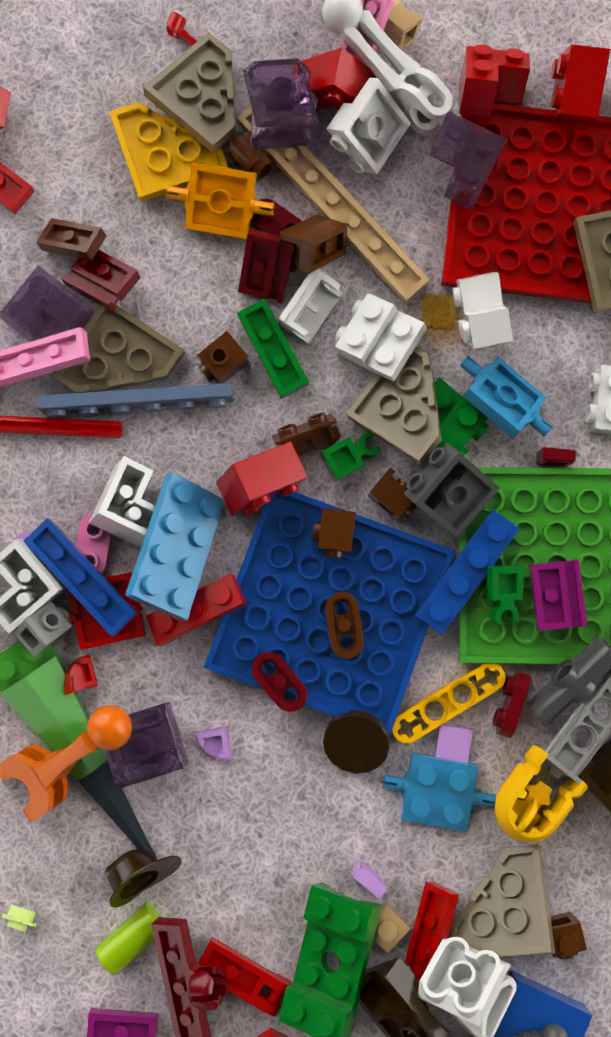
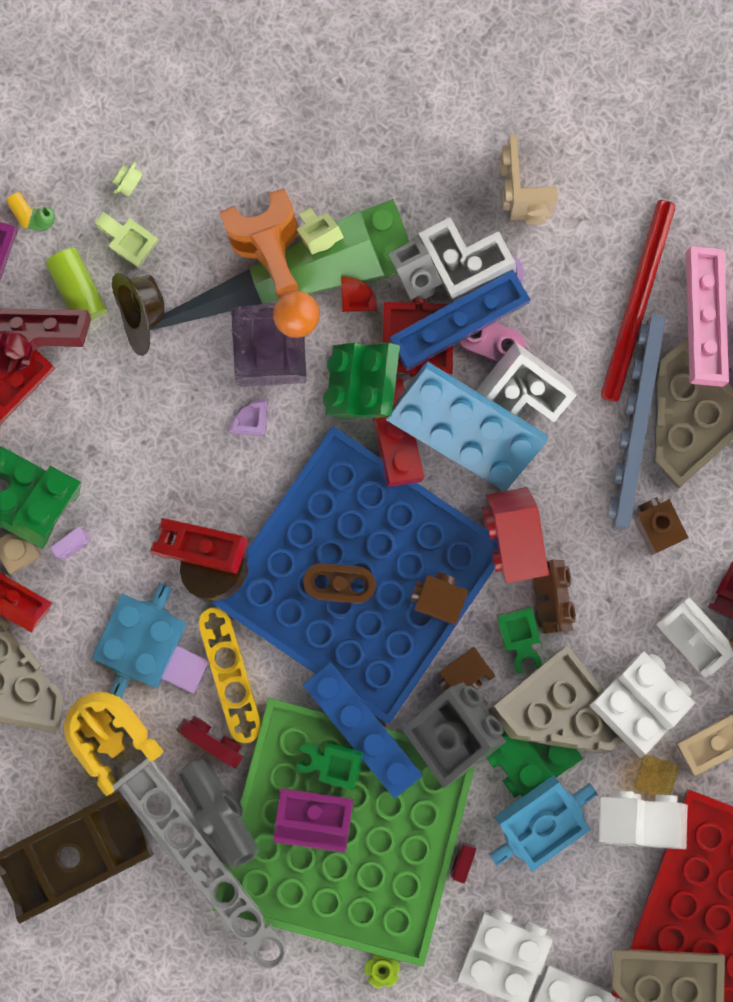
camera: 105 degrees right, 0 degrees up
(29, 726) = (318, 232): none -> yellowish green plate
(77, 900) = (129, 241): none -> yellowish green plate
(77, 1001) = (29, 217): none -> arm
(156, 651) = (361, 380): none -> green plate
(272, 348) = (659, 583): green plate -> none
(279, 681) = (298, 501): dark red plate -> none
(342, 760) = (199, 545): none -> red plate

